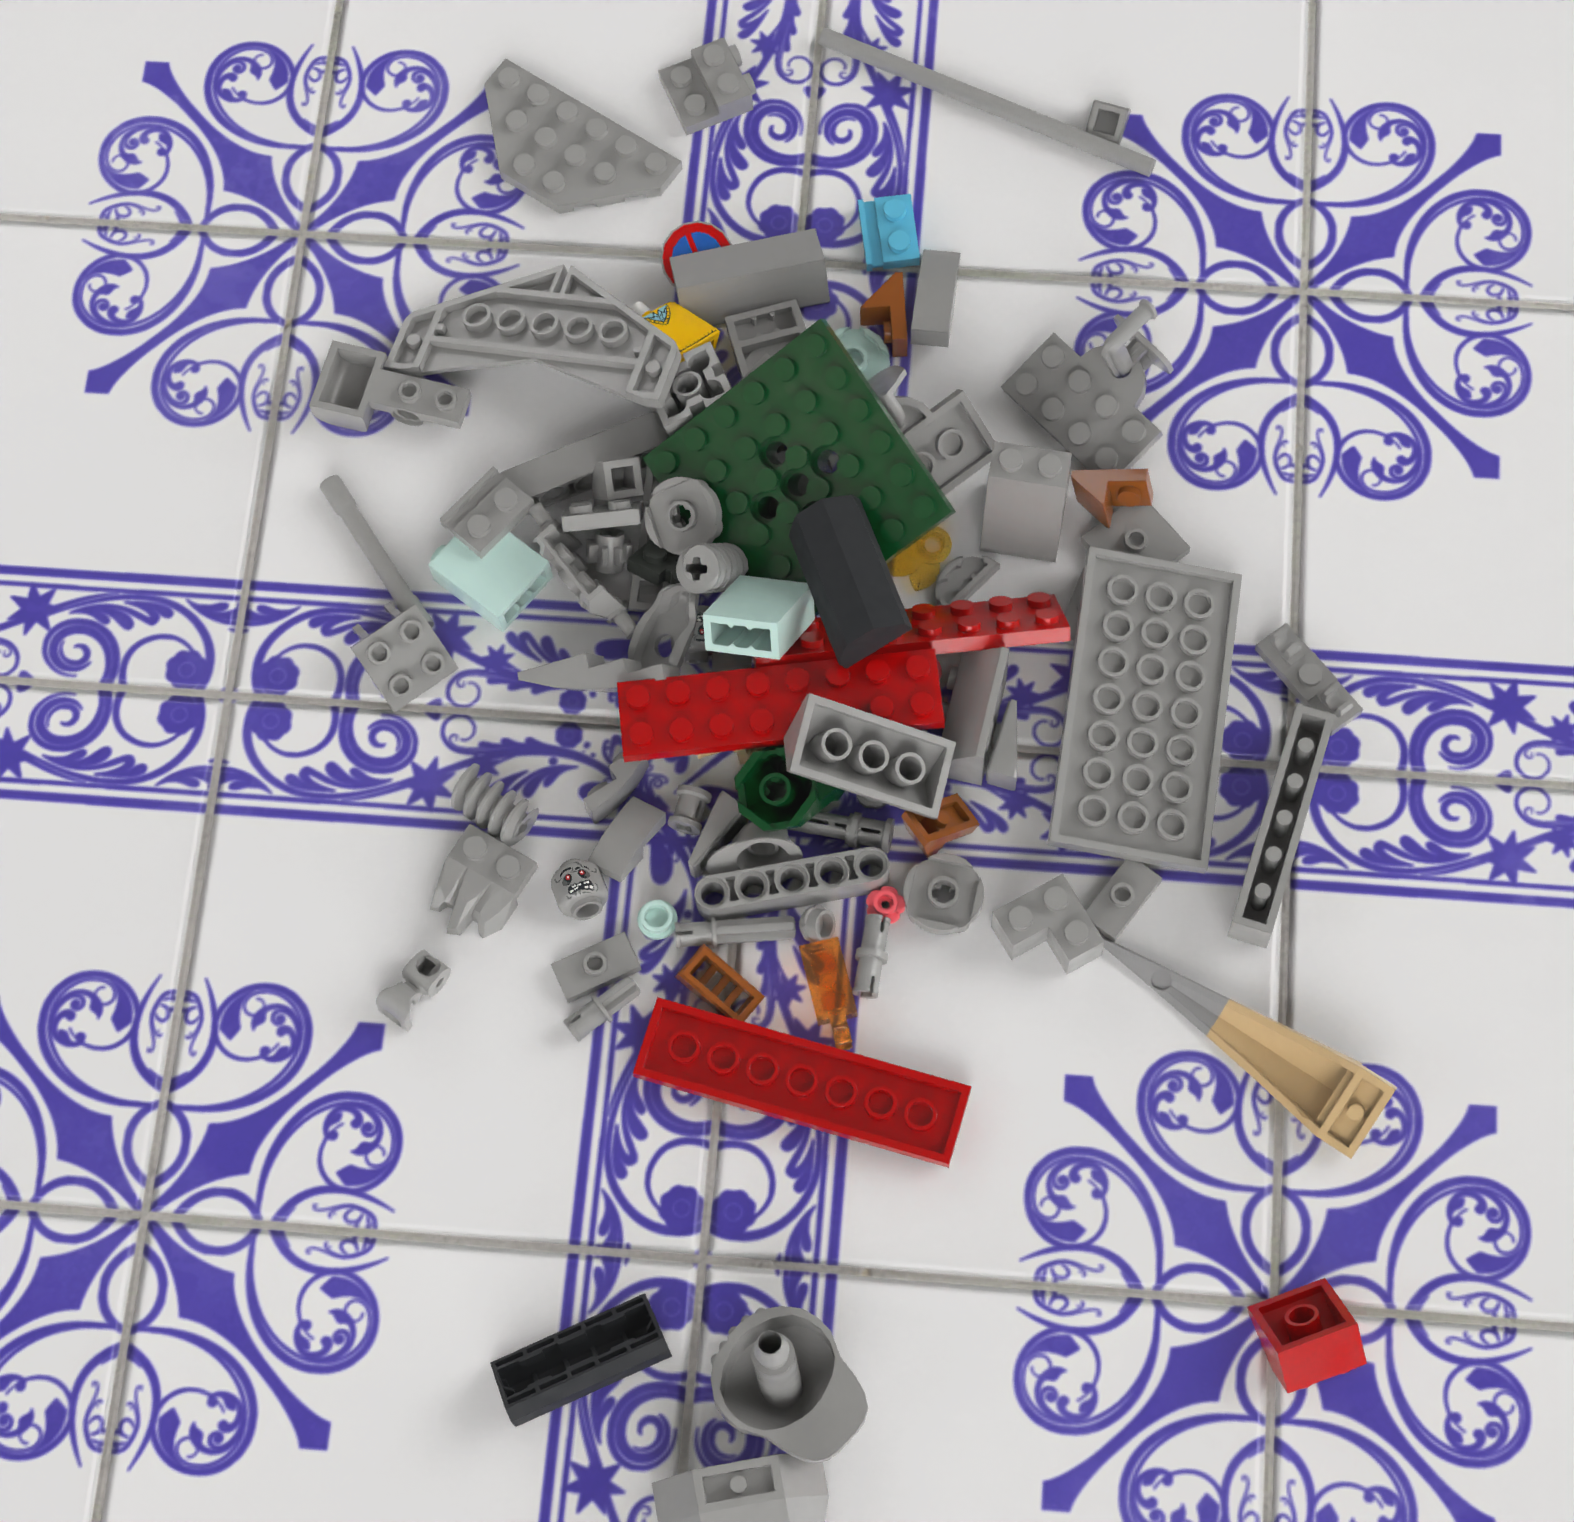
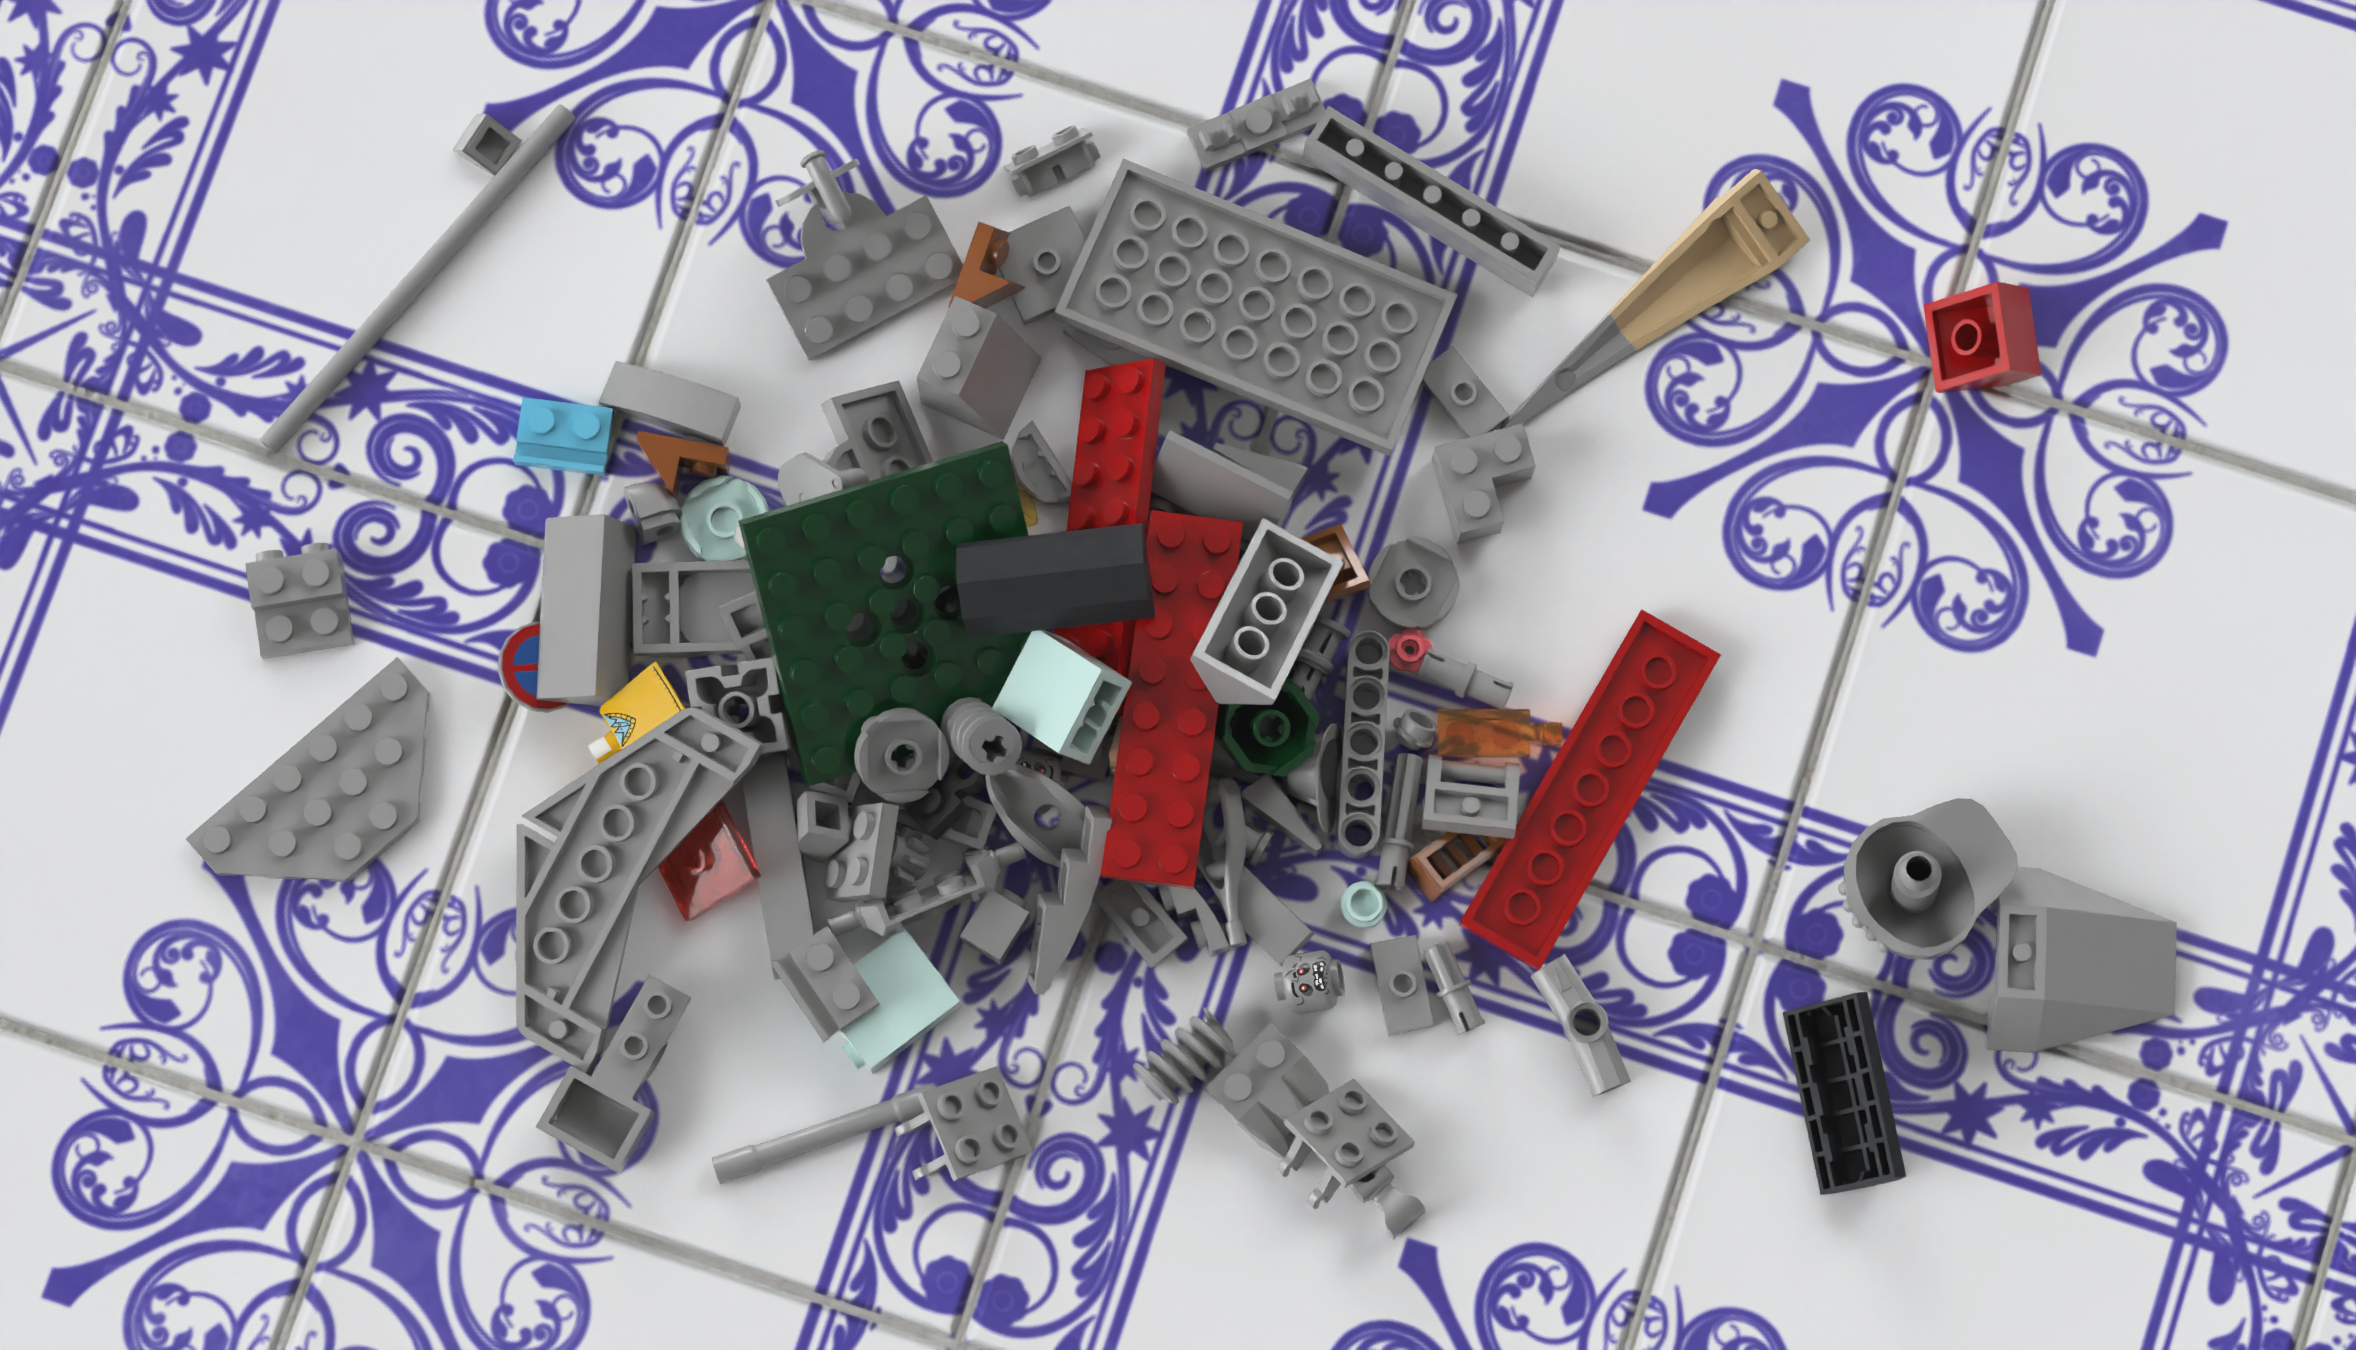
camera: 85 degrees left, 10 degrees up
(451, 944) = (1347, 1134): none -> light grey plate
(569, 633) = (996, 925): none -> light grey brick
(571, 409) = (708, 865): none -> clear red plate
(597, 747) = (1140, 920): none -> light grey plate
(613, 1103) = (1595, 1053): none -> light grey piece
(672, 788) = (1231, 866): none -> light grey piece
(758, 981) = (1471, 807): none -> light grey plate
(843, 304) = (652, 511): none -> light grey piece
(1236, 535) = (1035, 165): none -> light grey hinge

